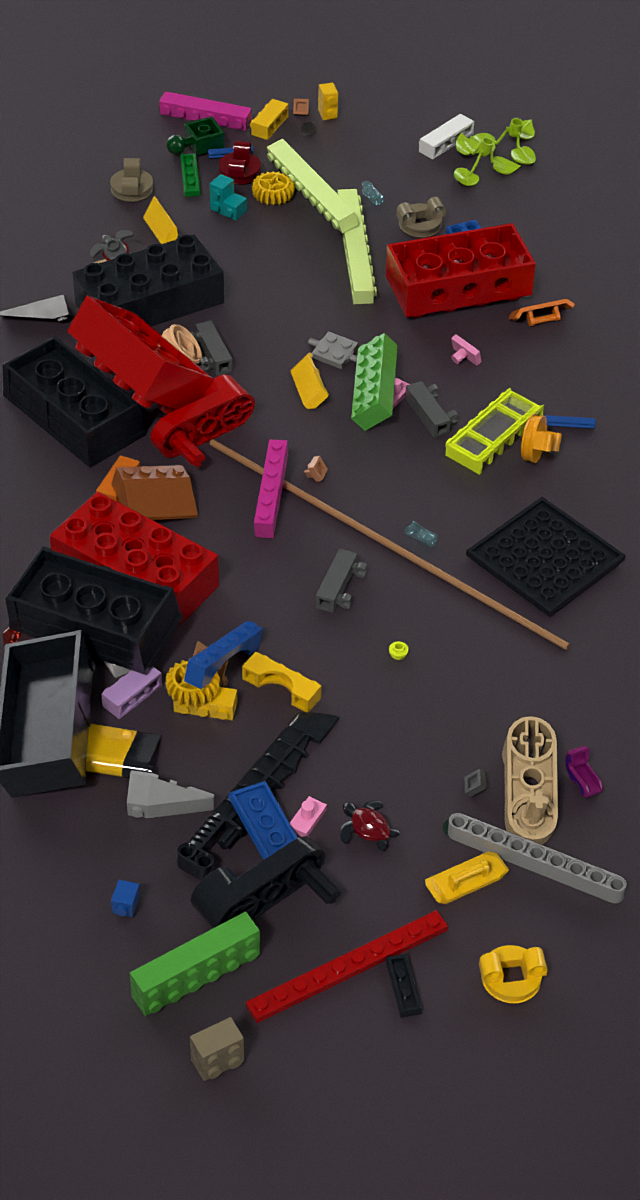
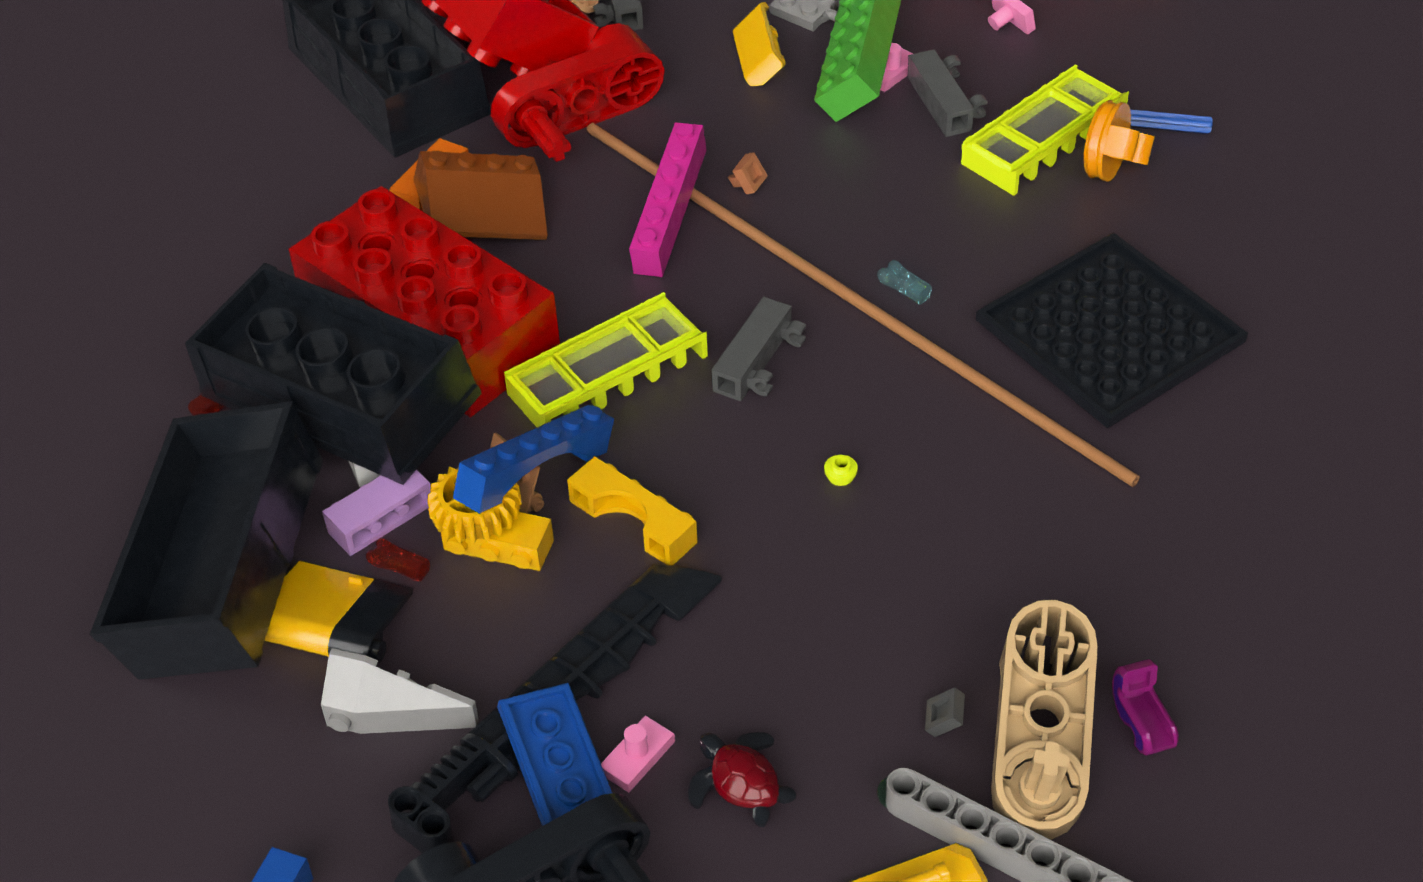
camera: 10 degrees right, 0 degrees up
(150, 719) = (399, 560): none -> clear red bar
(248, 592) = (603, 359): none -> neon yellow window

